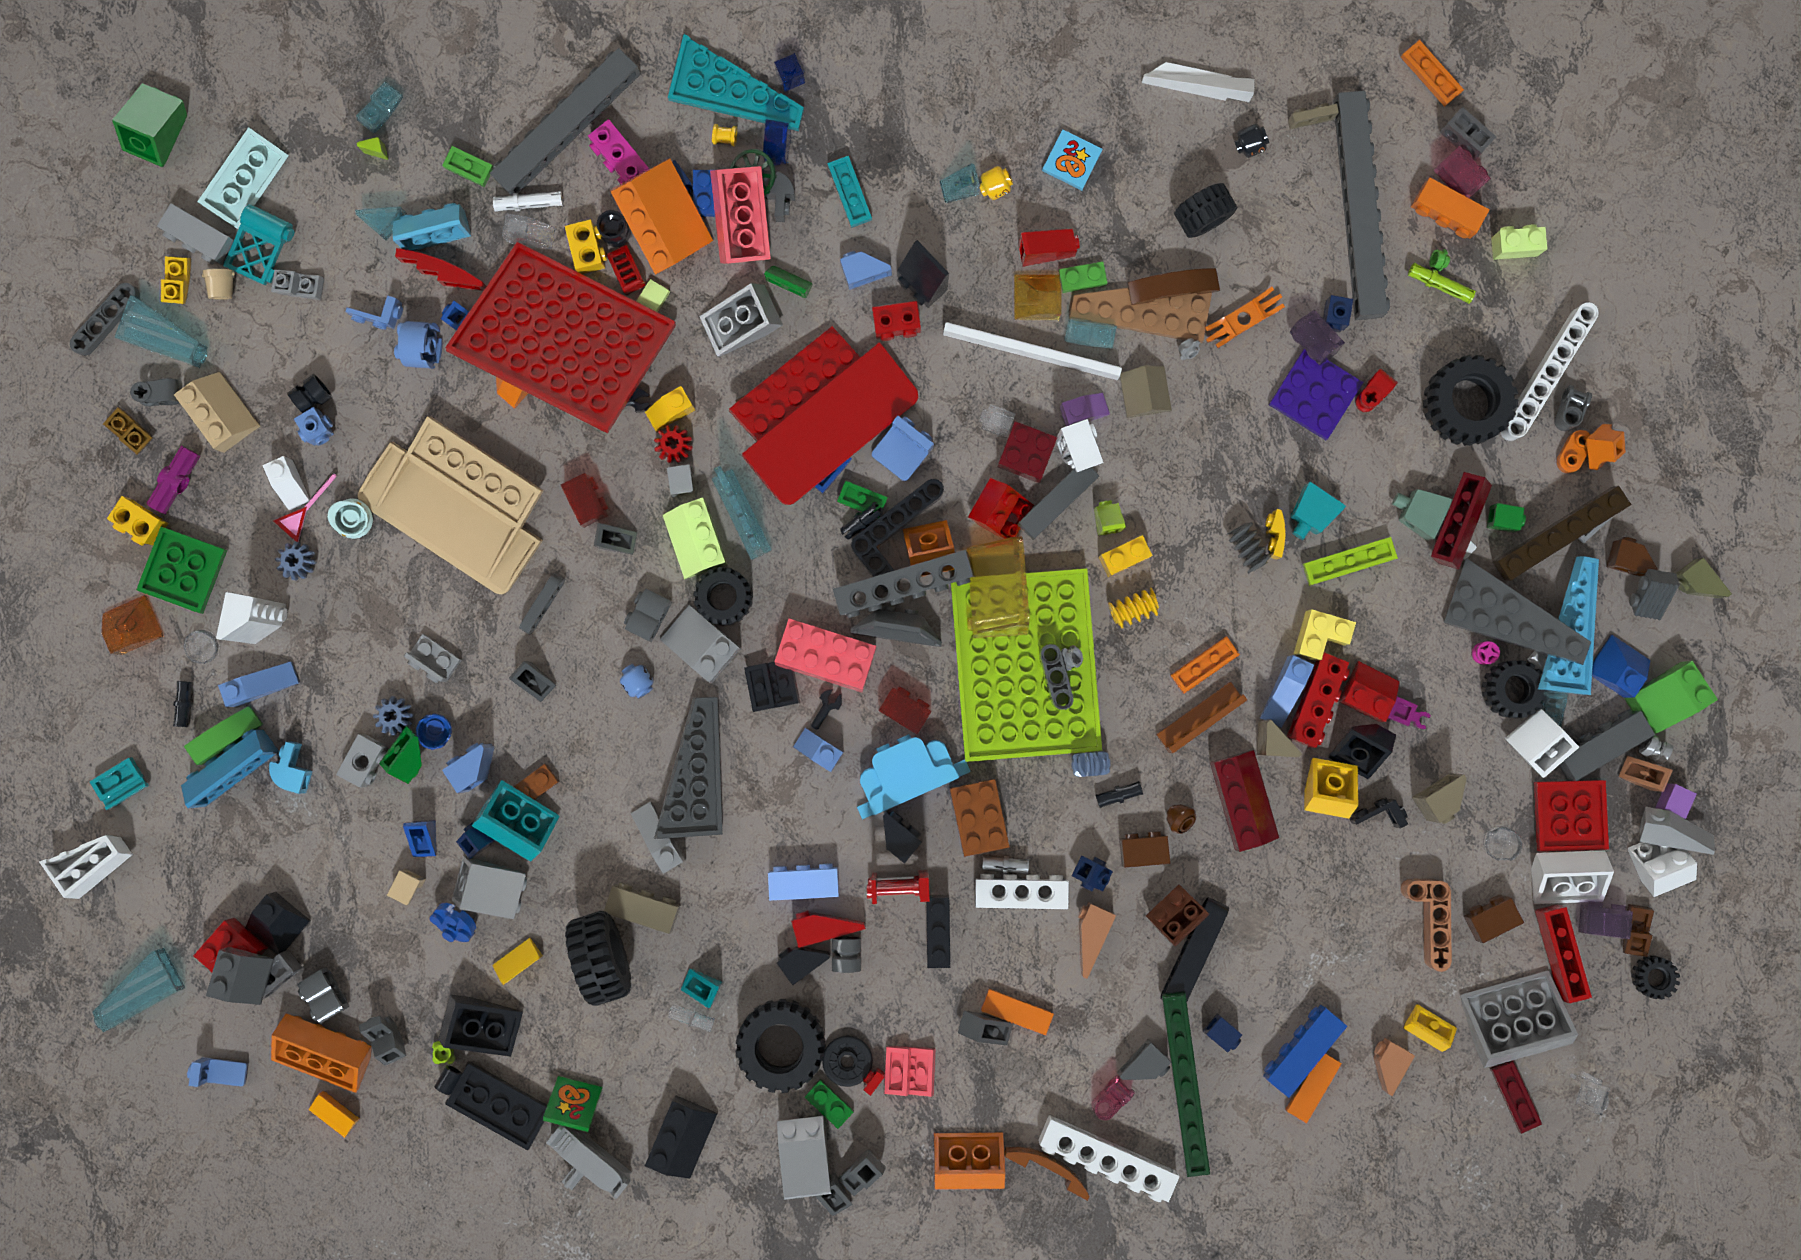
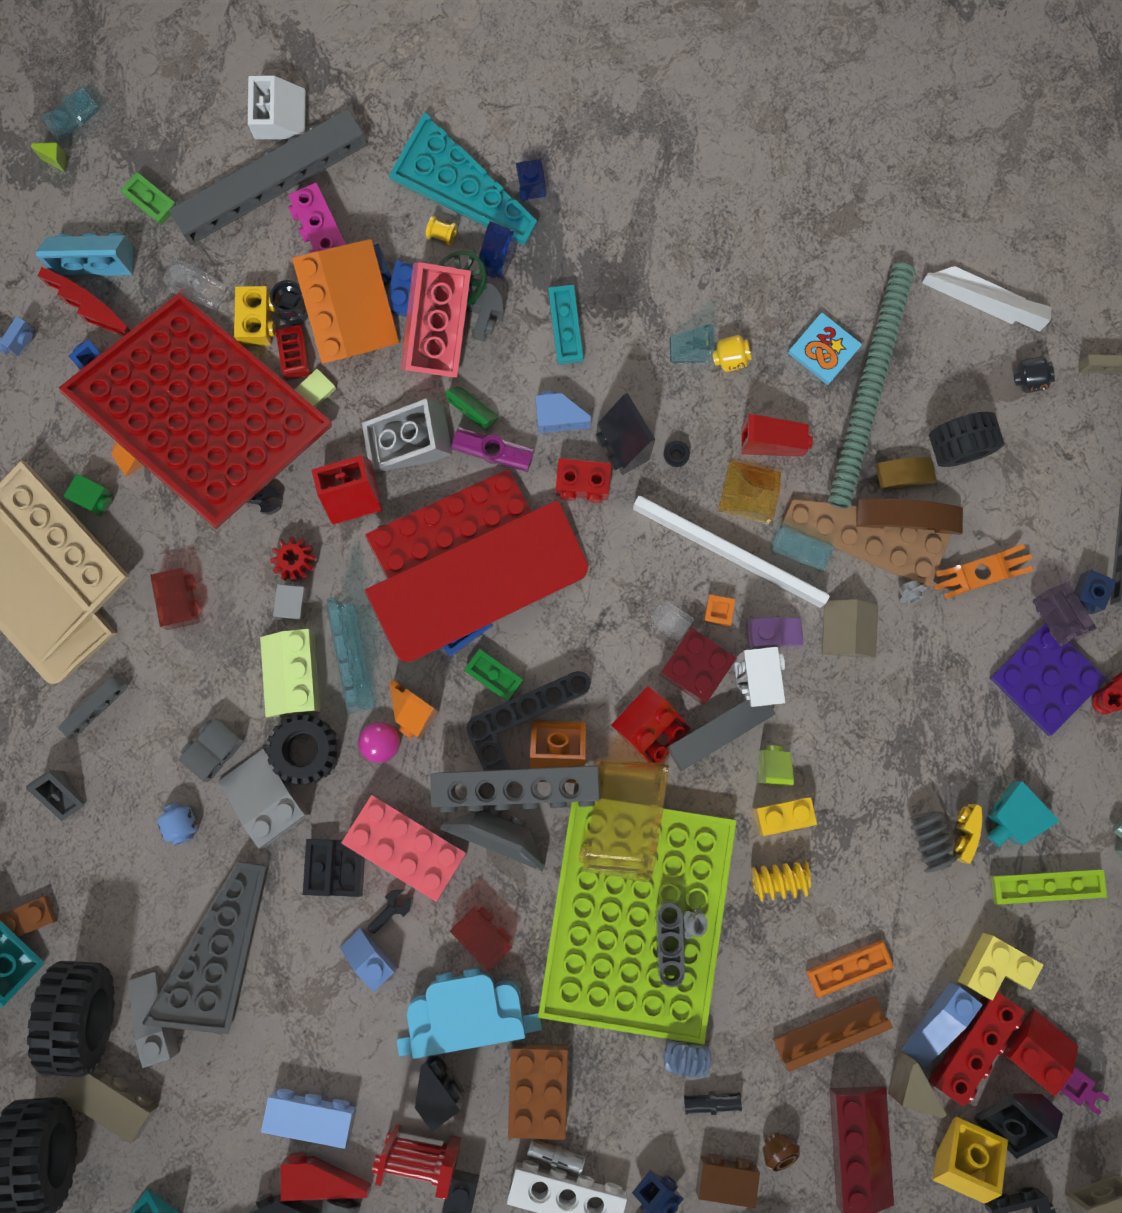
camera: 10 degrees right, 5 degrees down
(381, 219) = (34, 231): clear light blue slope -> none
(418, 344) = (35, 378): medium blue brick -> none
(489, 431) = (89, 495): none -> green brick
(536, 200) = (210, 252): white pin -> none
(556, 61) = (275, 108): none -> white slope
(598, 846) = (71, 1018): none -> black tyre
(615, 539) = (196, 652): dark grey slope -> none
(669, 409) = (300, 518): yellow slope -> none
(704, 375) = (347, 489): none -> red slope
(781, 576) = (378, 742): none -> dark pink hair
(803, 544) = (410, 711): none -> orange slope
(830, 312) = (475, 444): none -> magenta piece
(861, 520) = (486, 699): black pin -> none
(903, 448) = (554, 627): medium blue bracket -> none
(969, 273) = (680, 447): none -> black plate
(1034, 402) = (719, 610): none -> orange plate
(1082, 277) = (806, 481): bright green plate -> none
(1117, 185) = (871, 385): none -> sand green piece
(1162, 249) = (905, 472): none -> pearl gold slope

